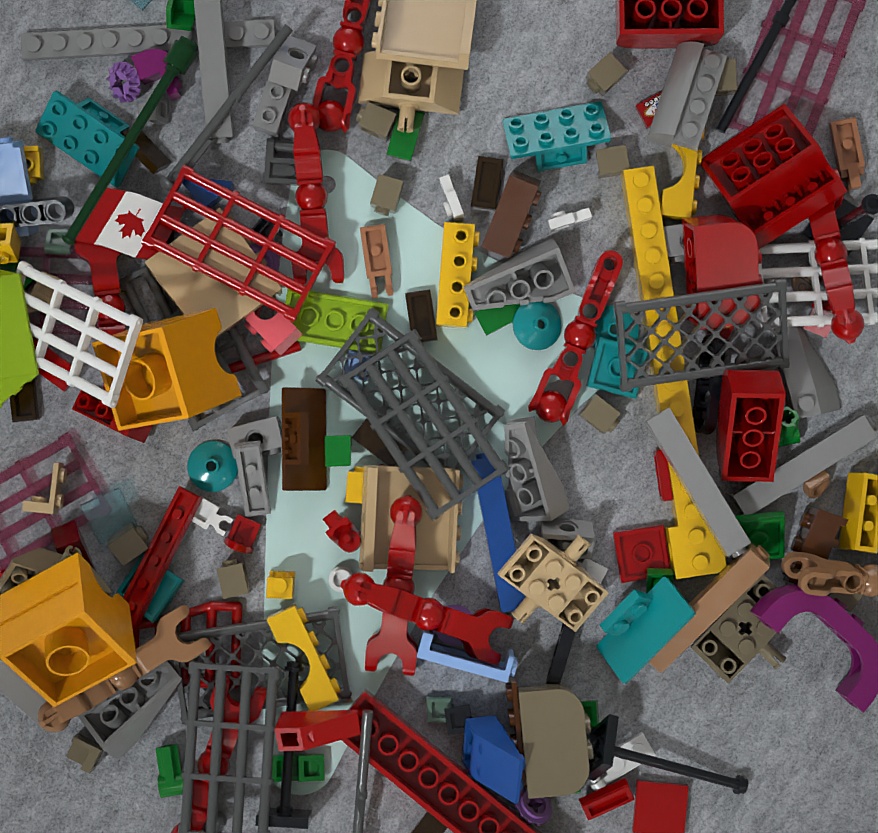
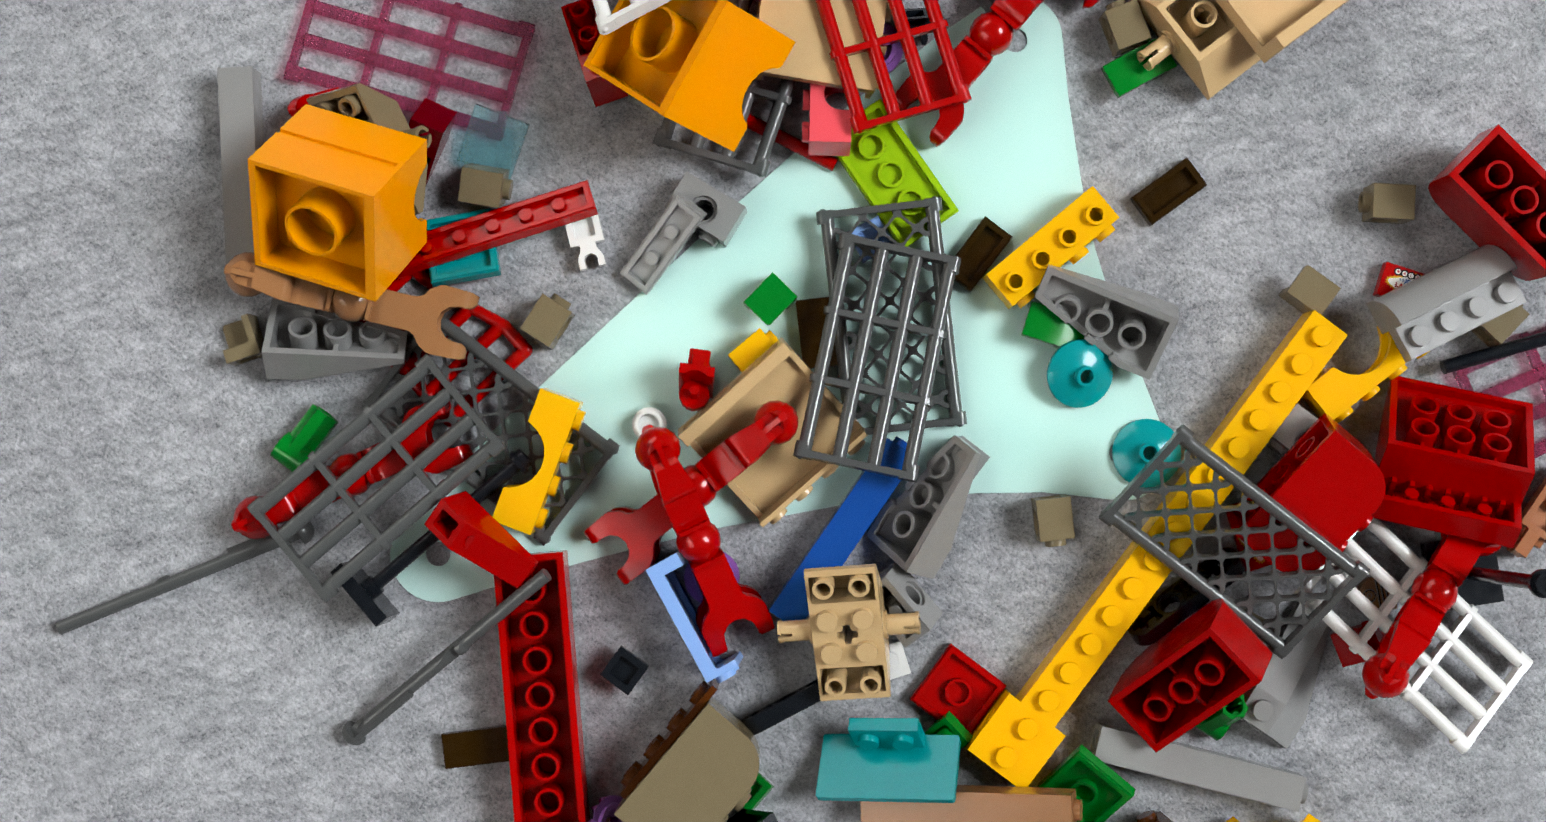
camera: 45 degrees right, 0 degrees up
(40, 504) = (459, 73): tan bracket -> none
(225, 470) = (636, 212): teal dish -> none
(243, 534) = (600, 288): red tile -> none
(281, 585) = (587, 371): yellow brick -> none
(303, 439) = (749, 255): reddish brown bracket -> none
(305, 767) = (434, 566): green slope -> none
(376, 257) = (993, 155): nougat hinge -> none
(386, 195) = (1063, 105): dark tan brick -> none
(436, 707) = (614, 636): sand green tile -> none
(452, 204) = (1115, 178): white plate -> none
(493, 757) = (620, 739): blue slope -> none
(512, 214) = (1163, 245): reddish brown wedge -> none
(557, 135) = (1282, 215): teal bracket -> none
(562, 220) = (1205, 299): white plate -> none
(578, 338) = (1108, 426): red piece -> none
(605, 367) = (1104, 481): teal plate -> none
(663, 476) = (1054, 637): red tile -> none
(698, 483) = (1083, 680): light grey brick -> none
(816, 485) = (1191, 797): medium nougat tile -> none

